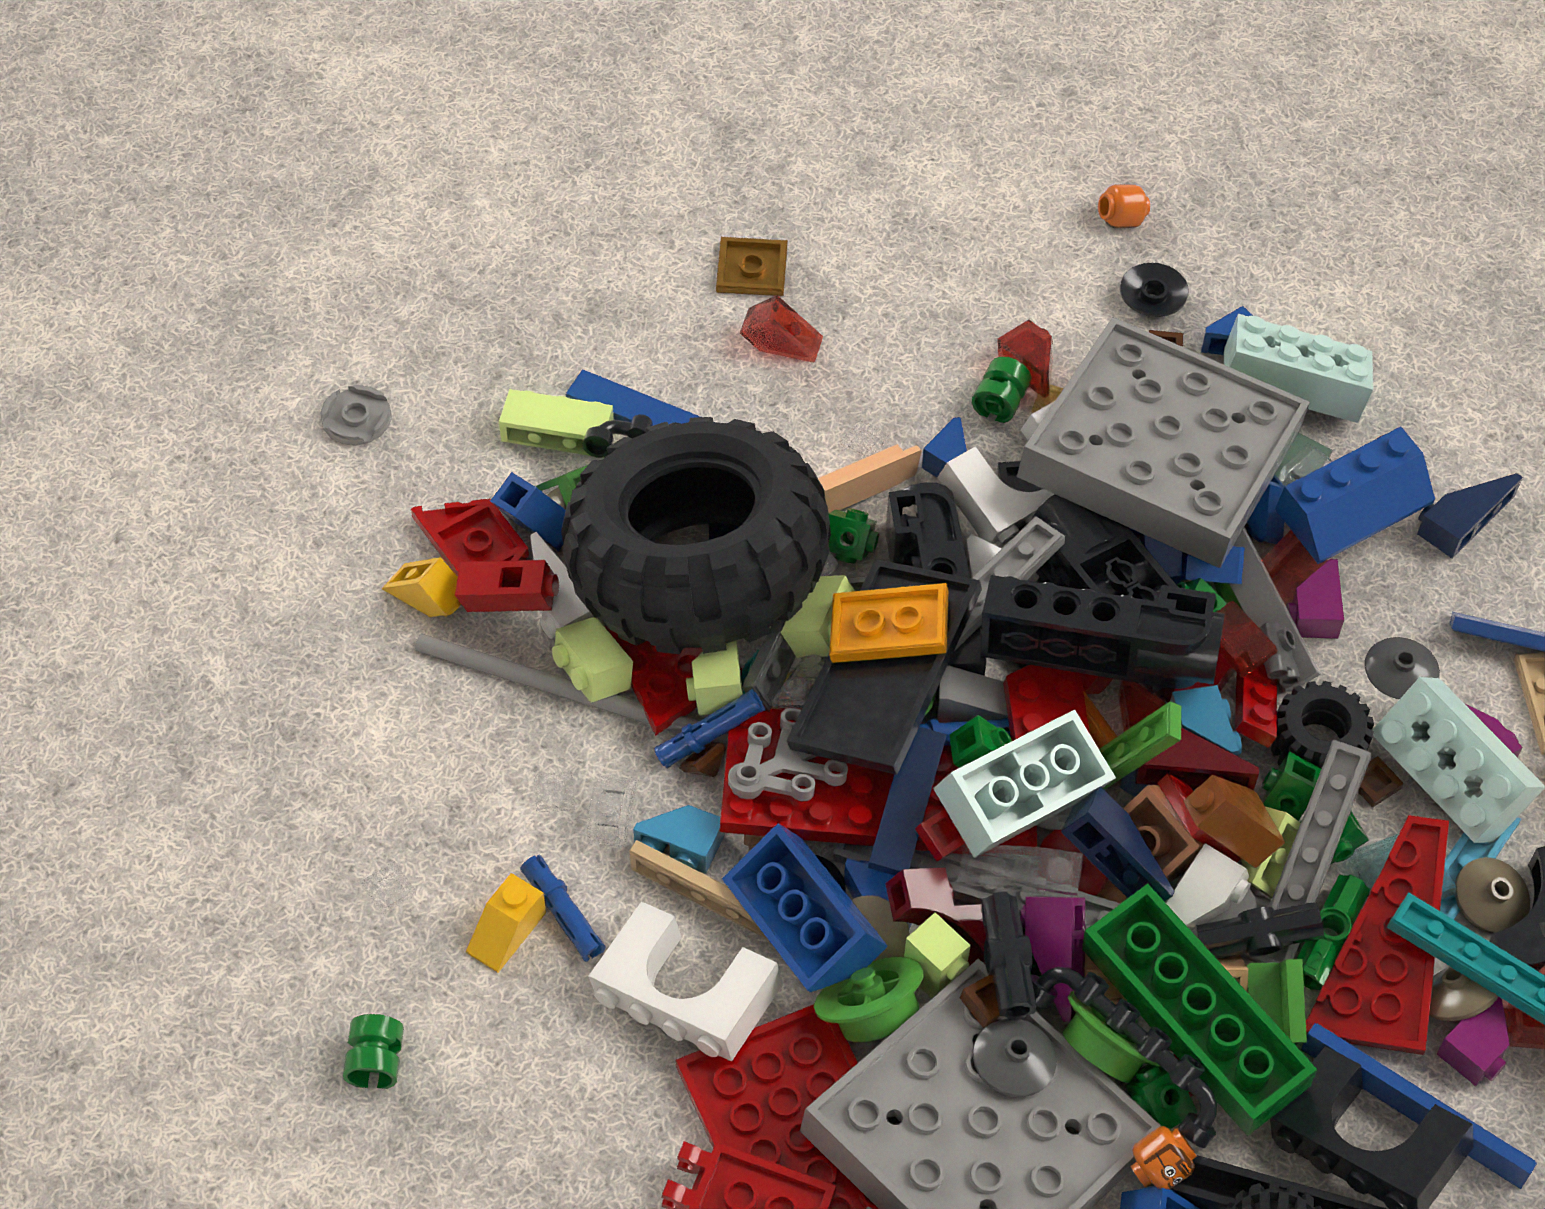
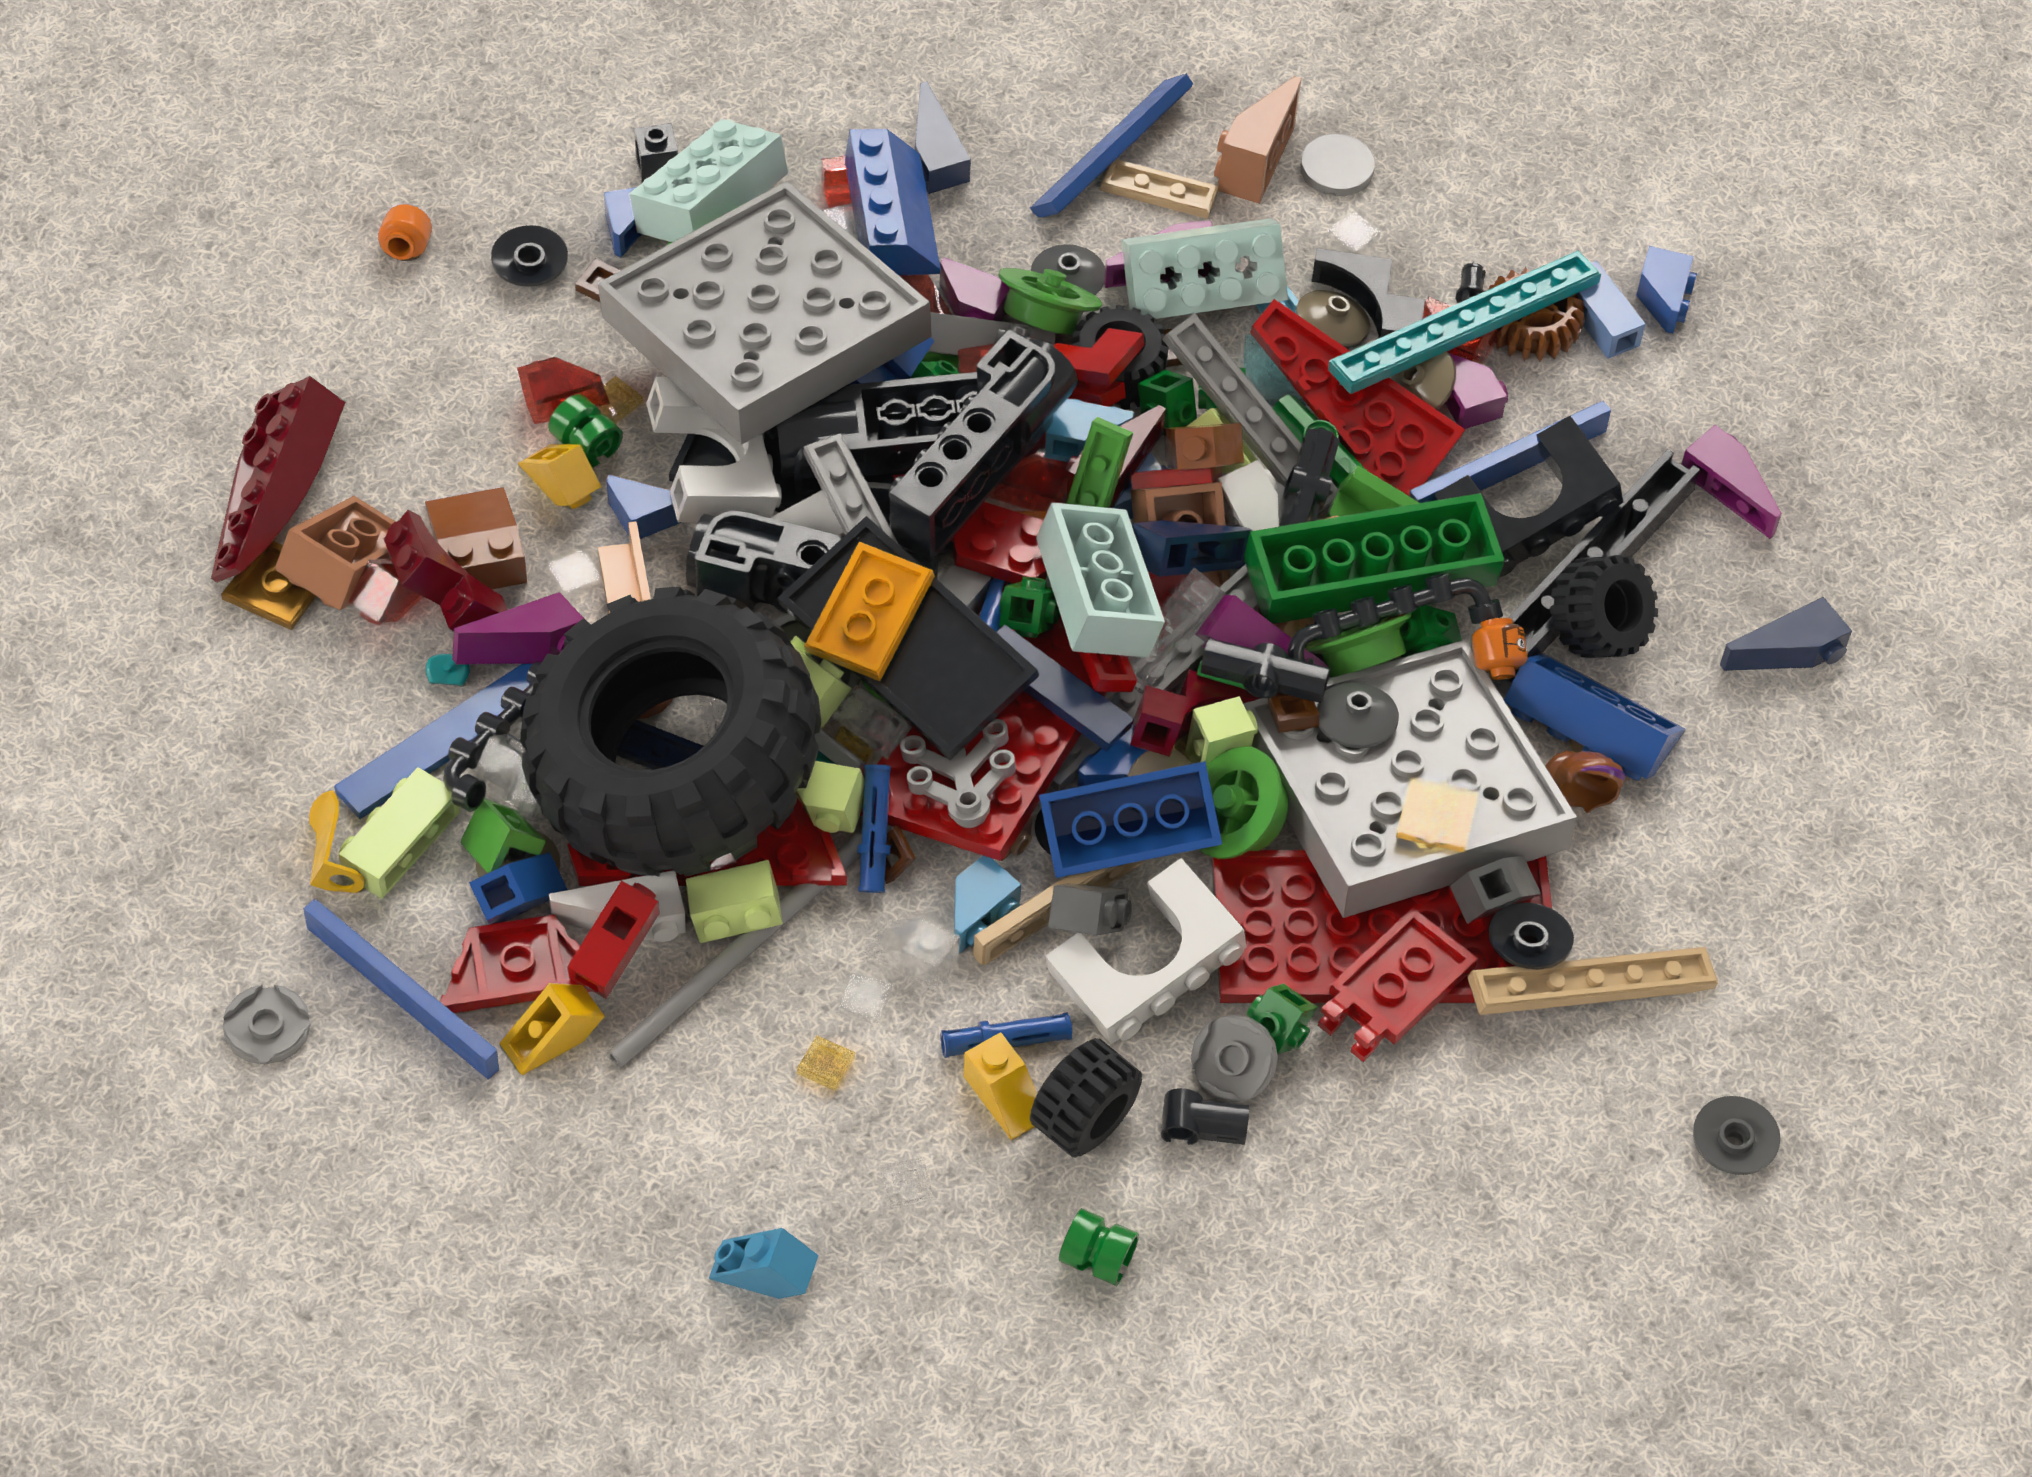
camera: 70 degrees left, 0 degrees up
(263, 812) = (765, 1263): none -> dark azure slope
(415, 481) = (401, 989): none -> tile
(480, 787) = (825, 1063): none -> clear yellow tile
(504, 981) = (1085, 1097): none -> black tyre
(517, 381) = (323, 819): none -> yellow piece
(541, 1086) = (1192, 1118): none -> black piece
(610, 1092) = (1234, 1058): none -> light grey tile
(666, 1116) = (1284, 1016): none -> green brick
(704, 917) = (1089, 909): none -> dark grey slope
(726, 396) = (444, 671): none -> teal piece
(772, 413) = (517, 634): none -> magenta slope
(789, 333) = (436, 576): none -> dark red arch
(804, 281) = (333, 549): none -> nougat slope
(844, 220) = (275, 470): none -> dark red wedge
(856, 364) = (480, 536): none -> dark orange slope
(928, 1161) = (1437, 814): none -> clear yellow piece
(949, 392) = (562, 474): none -> yellow slope
(1278, 707) = (1105, 358): none -> red tile
(1317, 319) = (654, 148): none -> black brick
(1343, 649) = (1046, 299): none -> bright green wheel

